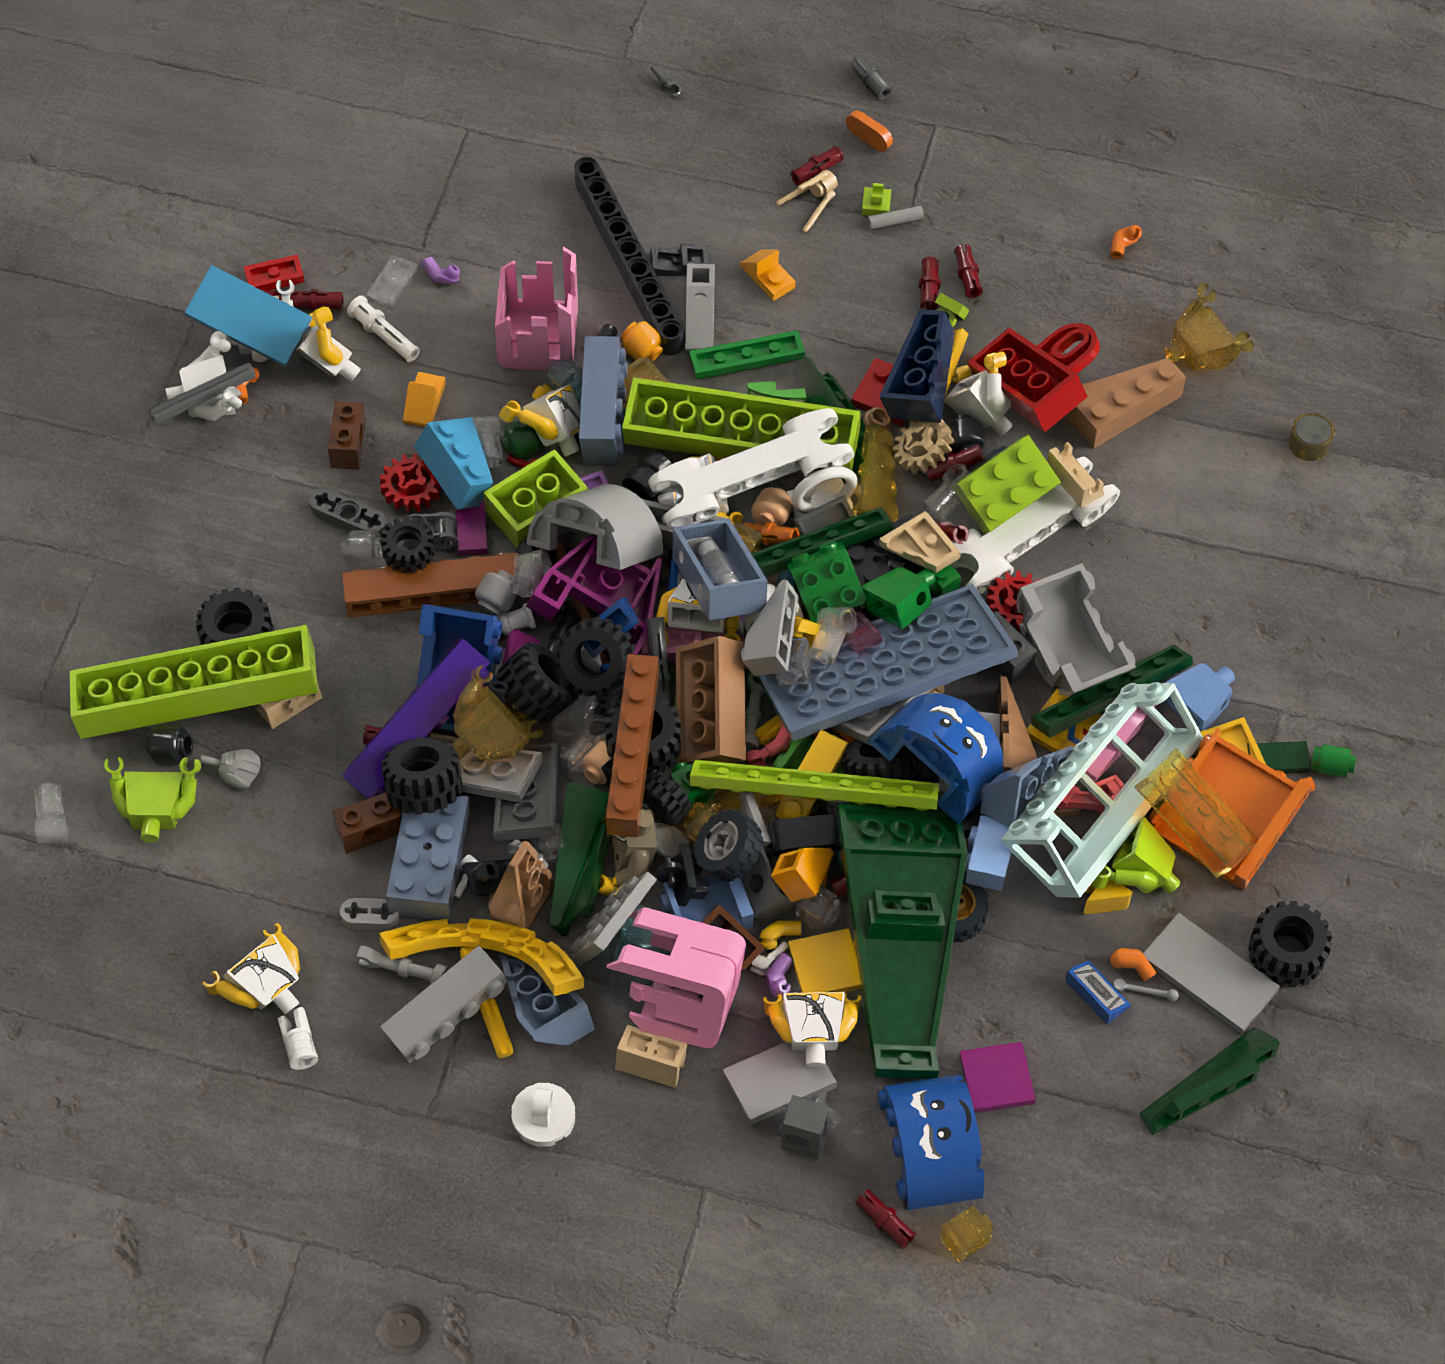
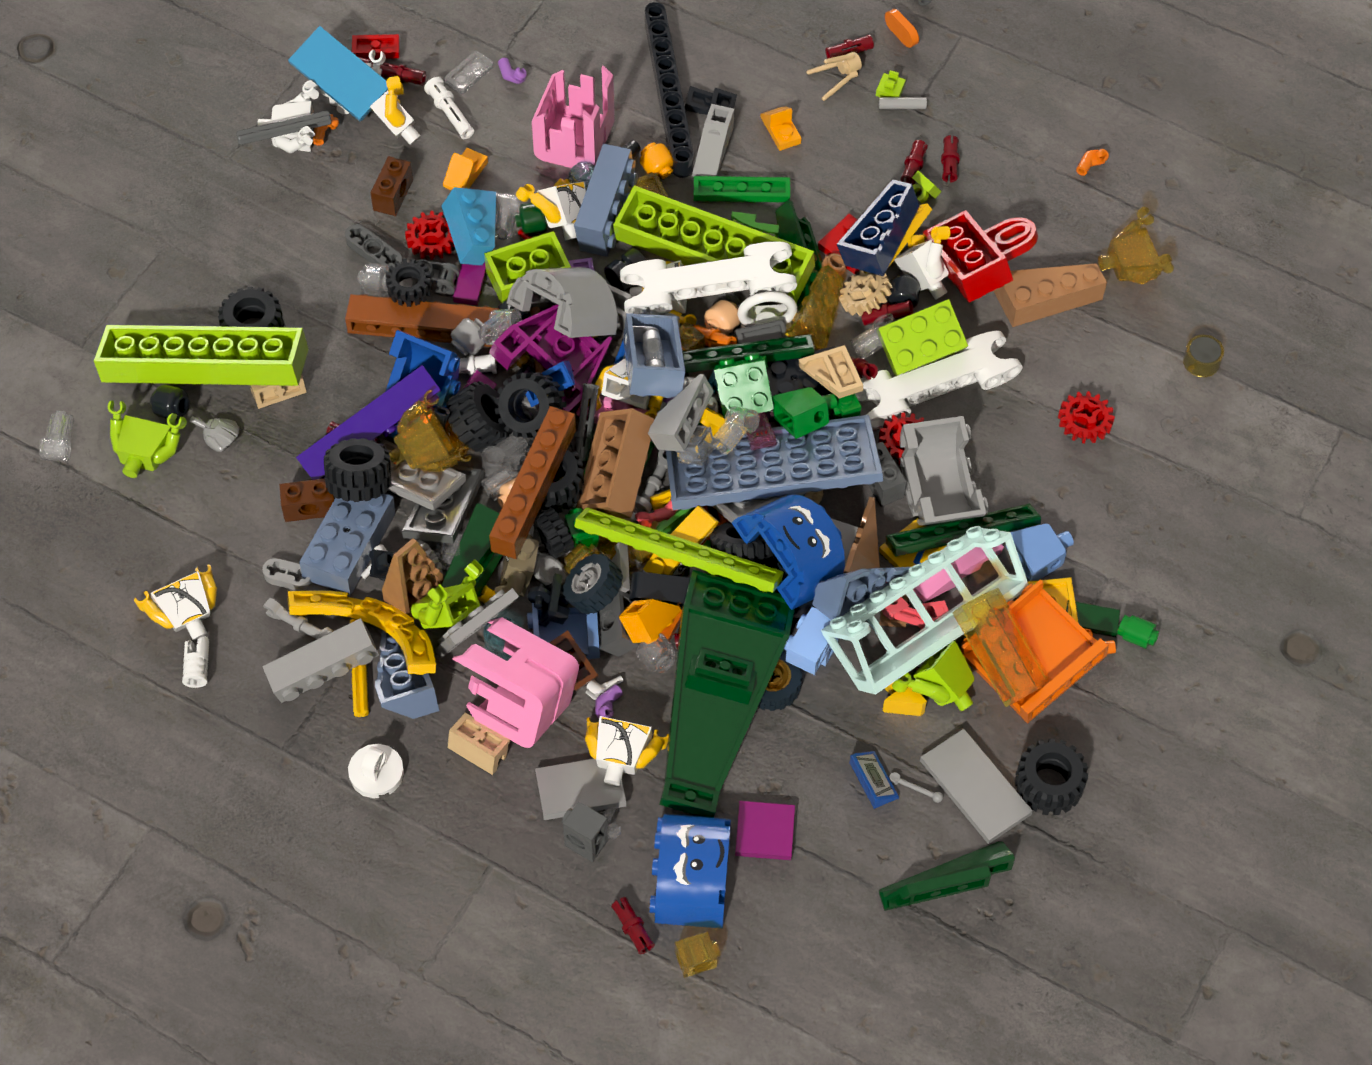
camera: 15 degrees right, 0 degrees up
(575, 906) = (451, 604): none -> lime torso
(776, 930) = (618, 664): yellow arm -> none
(826, 962) = (648, 700): yellow tile -> none
(1074, 477) = (983, 344): tan hinge -> none
(1132, 959) = (911, 758): orange arm -> none
(1206, 533) = (1086, 417): none -> red gear

